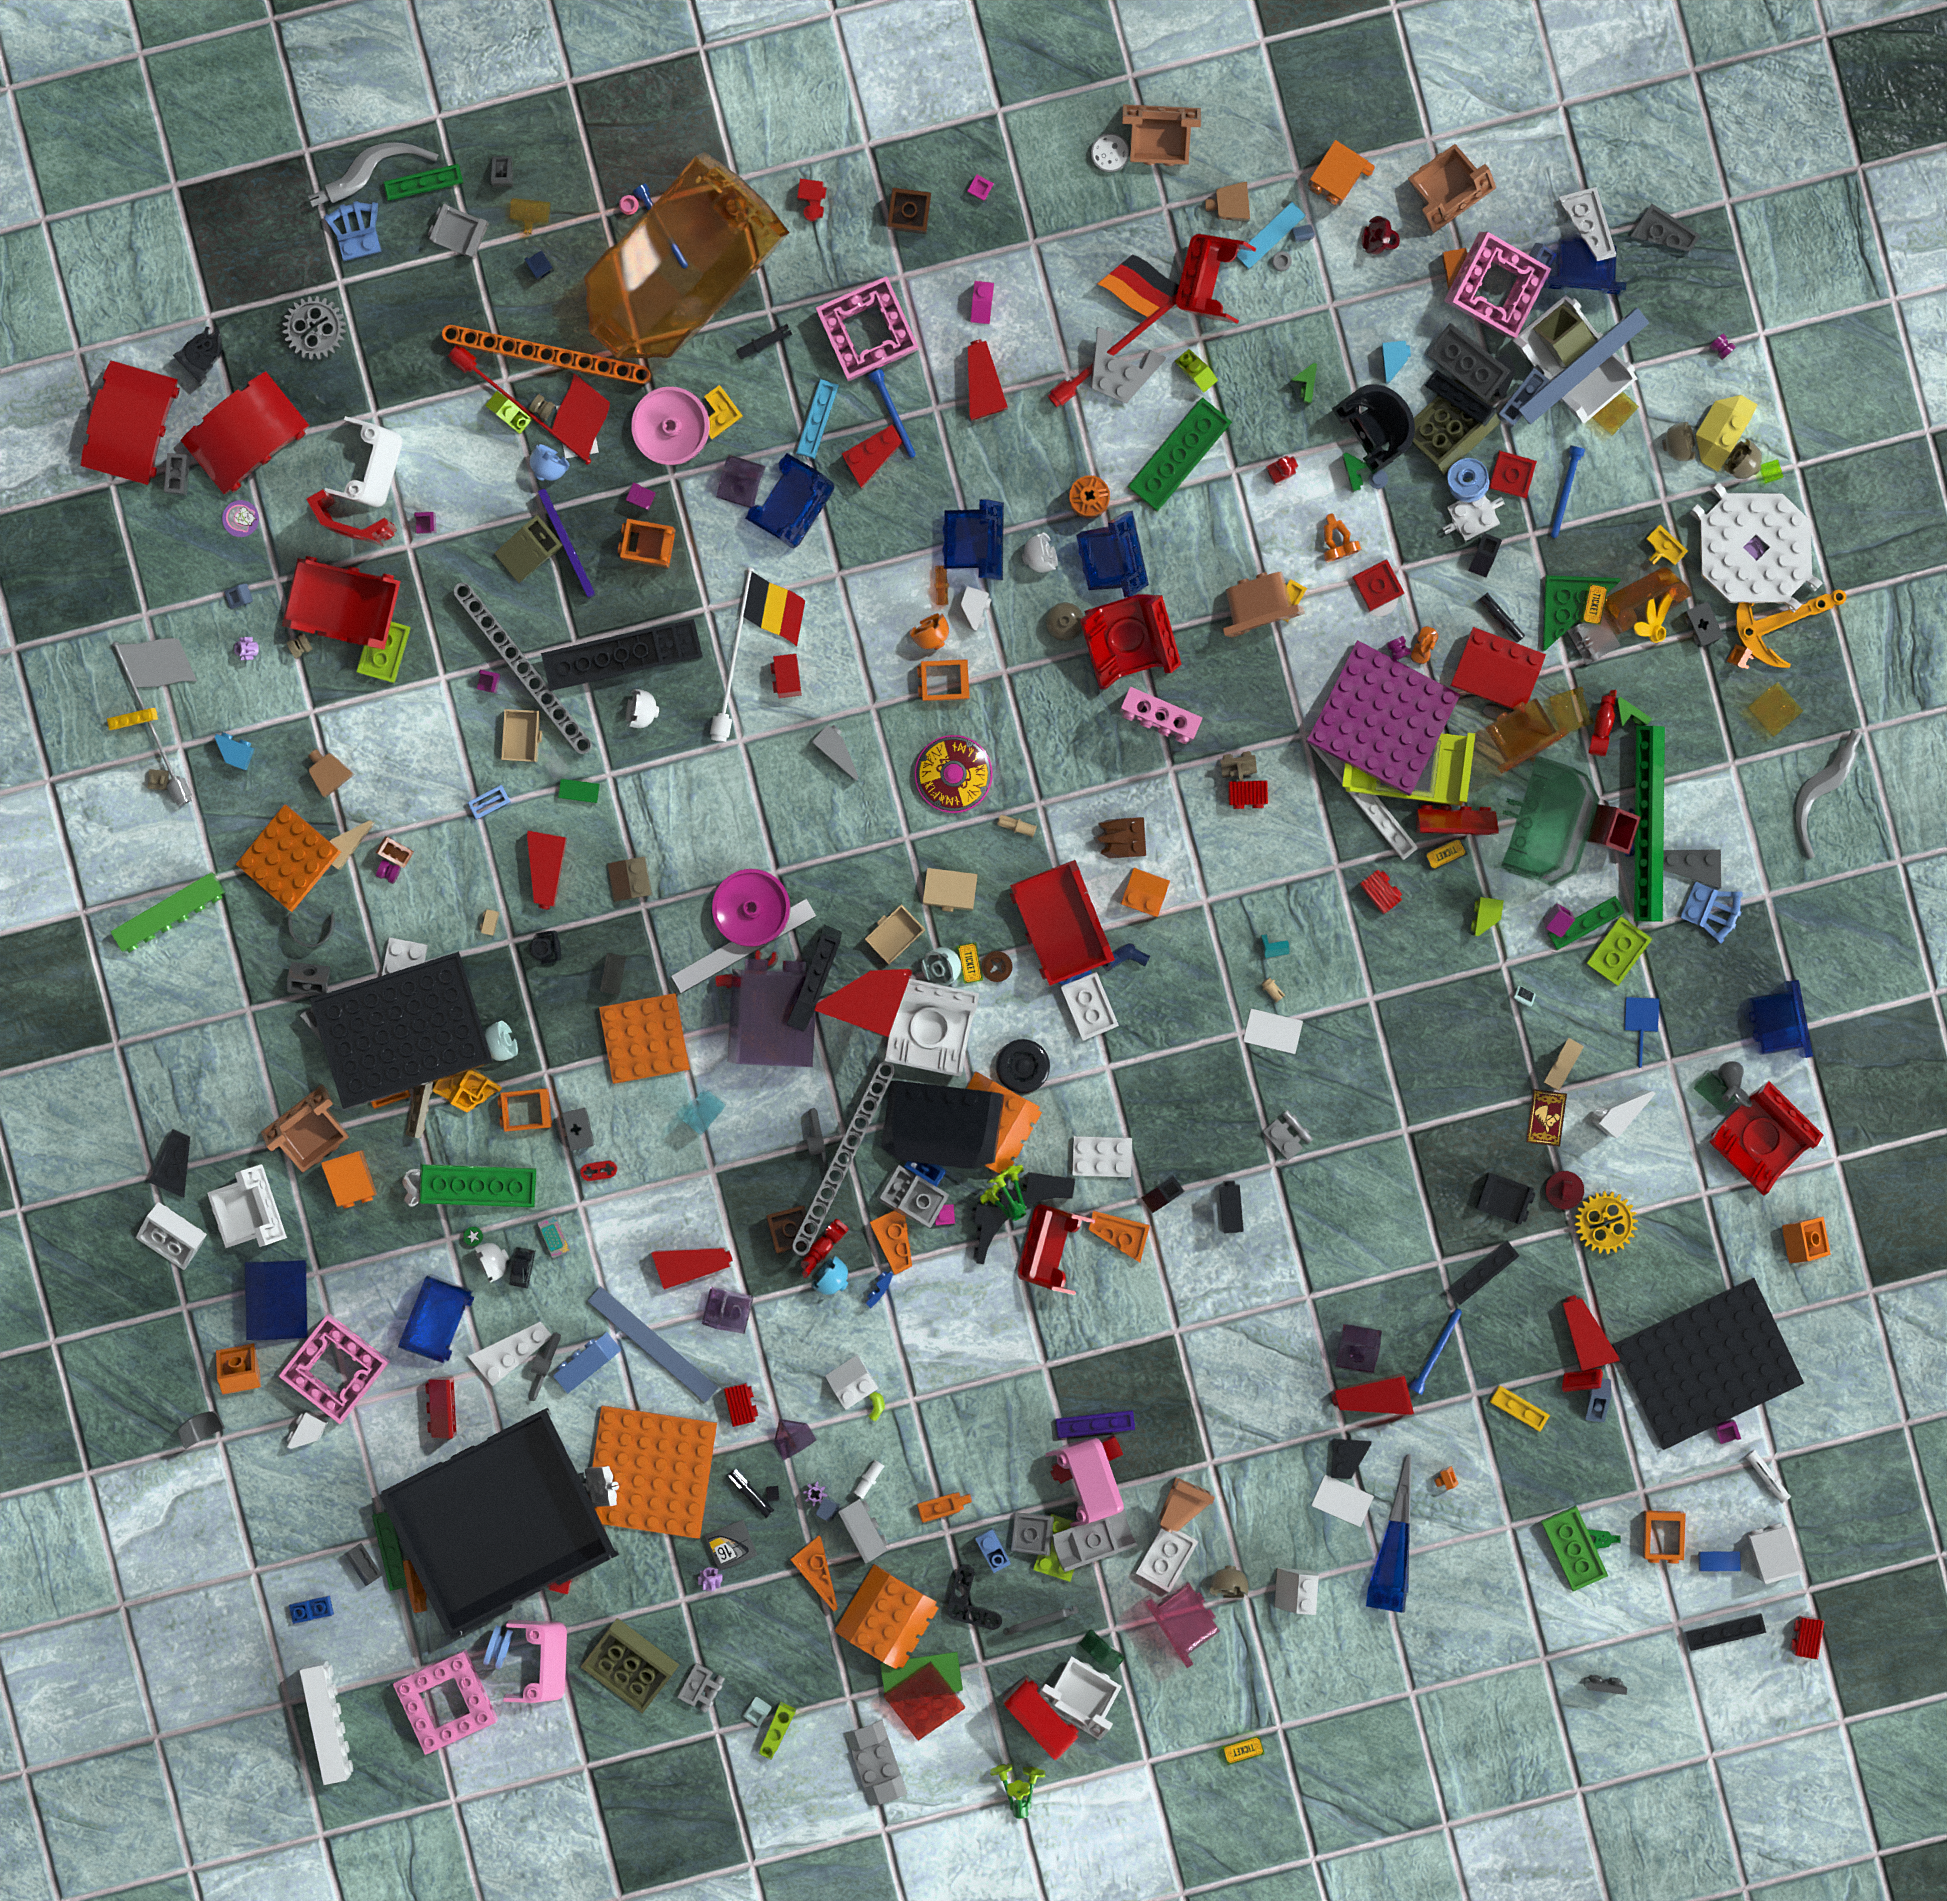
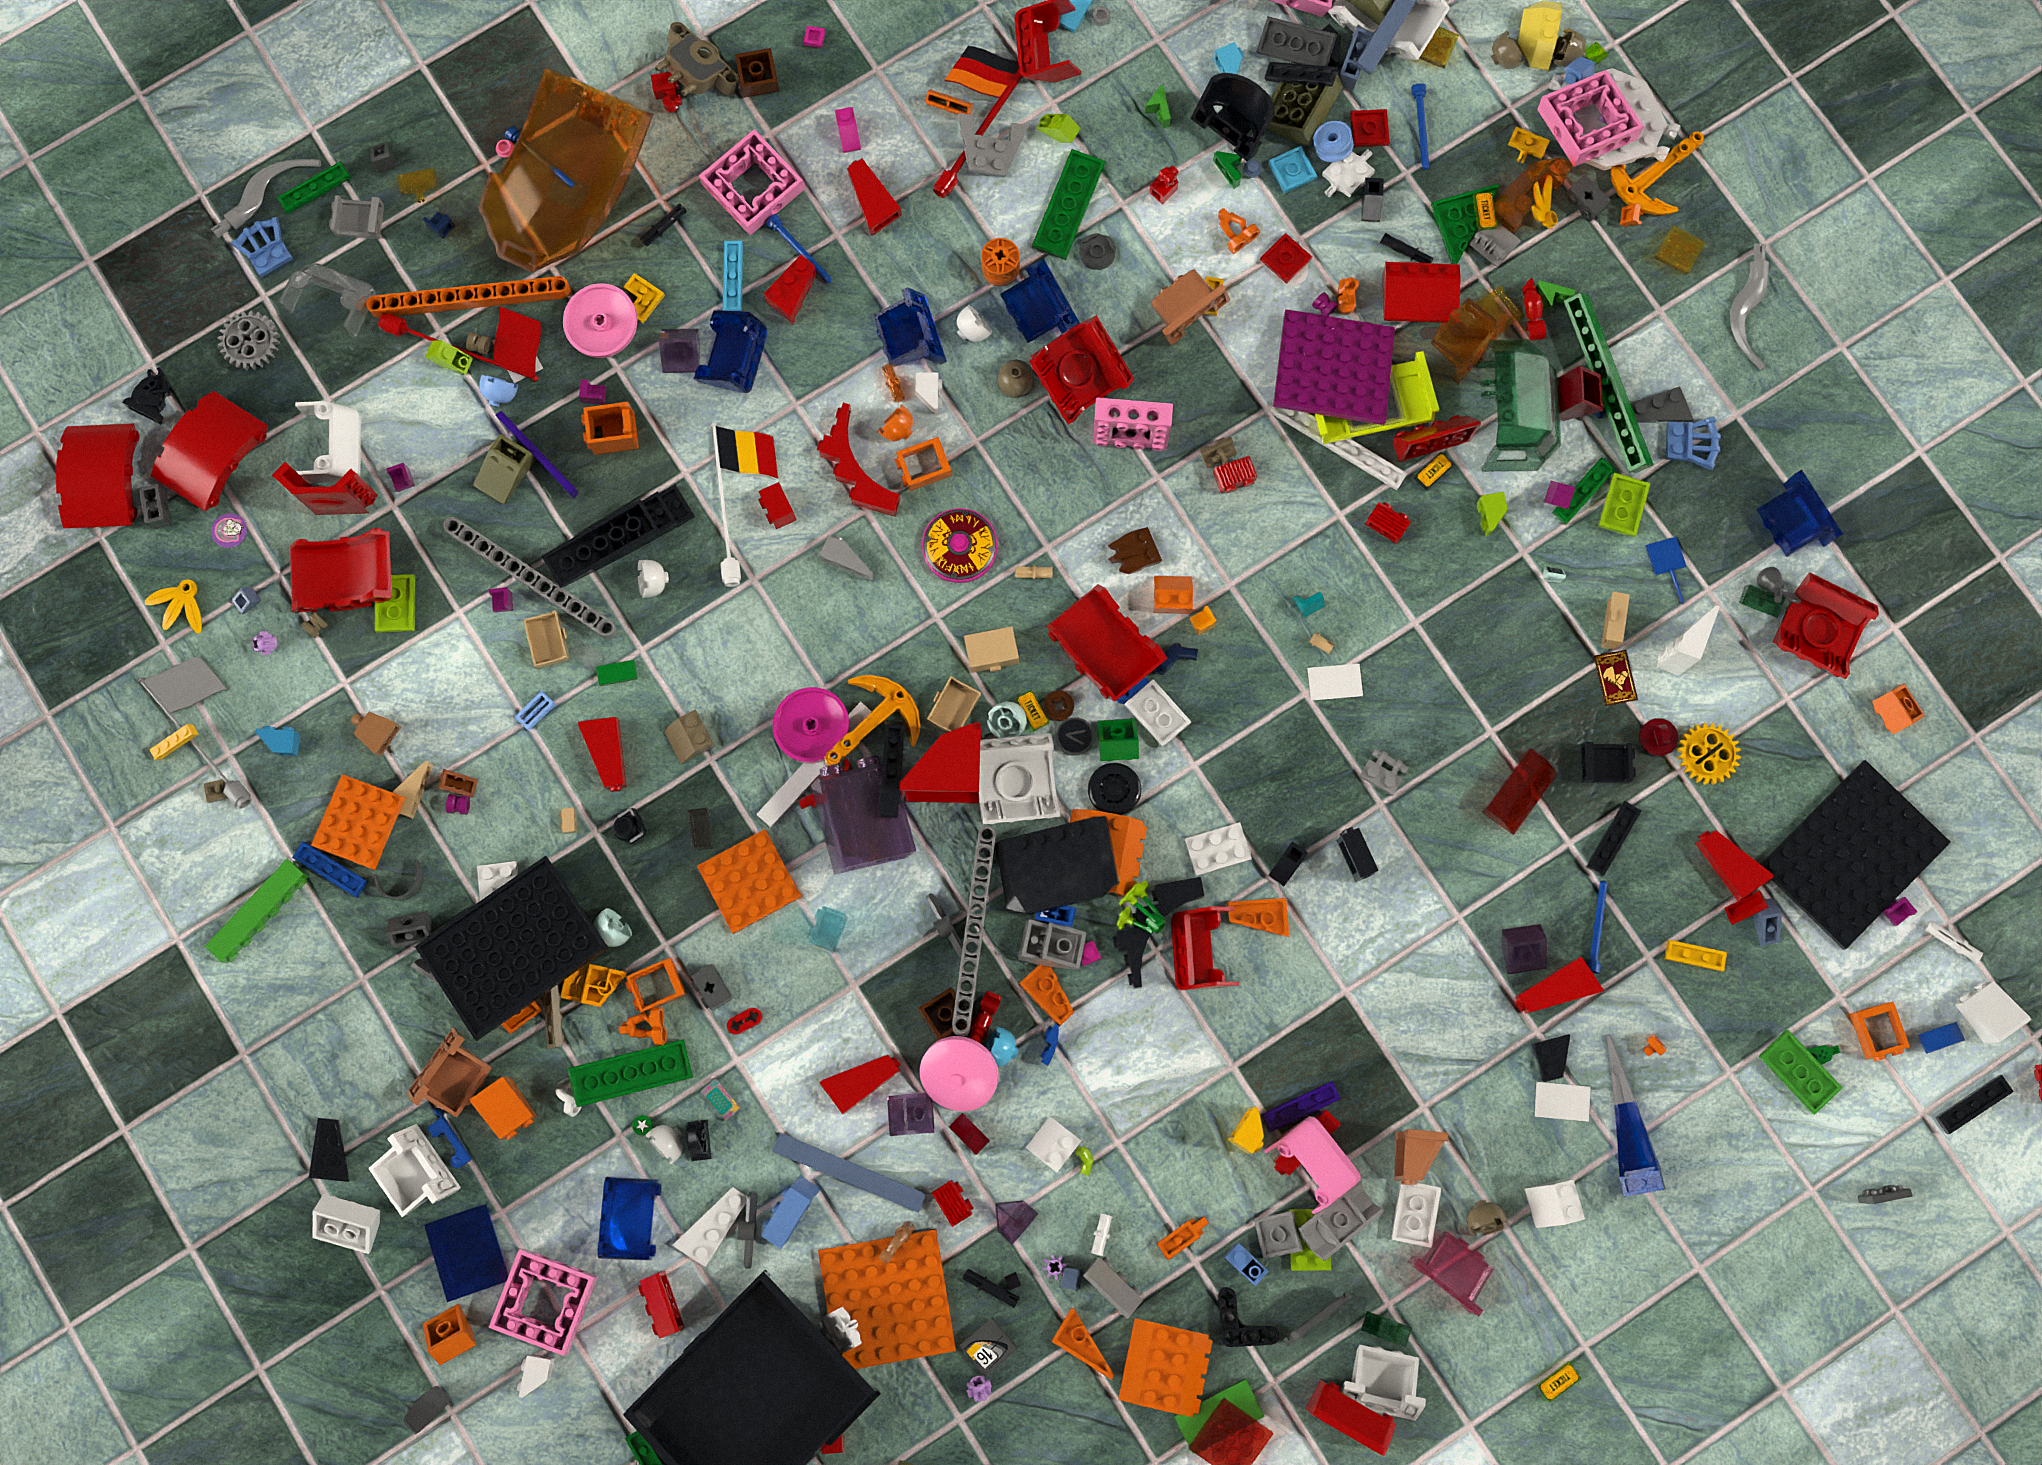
camera: 15 degrees left, 10 degrees down
(175, 575) = (180, 598): none -> yellow plant
(247, 893) = (330, 869): none -> blue tile
(285, 1174) = (442, 1126): none -> blue piece
(436, 310) = (353, 291): none -> clear windscreen
(515, 1143) = (655, 1019): none -> orange piece
(683, 1419) = (902, 1235): none -> medium nougat piece
(776, 1346) = (969, 1134): none -> dark red slope
(784, 1288) = (959, 1073): none -> bright pink dish
(842, 185) = (695, 67): none -> dark tan piece
(848, 918) = (886, 708): none -> light orange piece
(868, 662) = (866, 491): none -> red arch
(1002, 1001) = (1075, 736): none -> black tile
(1034, 1433) = (1248, 1132): none -> yellow slope
(1042, 1019) = (1118, 739): none -> green slope
(1095, 305) = (950, 100): none -> orange piece
(1164, 929) = (1203, 621): none -> light orange panel
(1191, 514) = (1097, 251): none -> dark grey tile
(1411, 1198) = (1520, 791): none -> clear red slope
(1418, 492) = (1292, 169): none -> medium azure tile
(1743, 491) = (1579, 70): none -> medium blue brick
(1756, 526) = (1602, 91): none -> bright pink brick

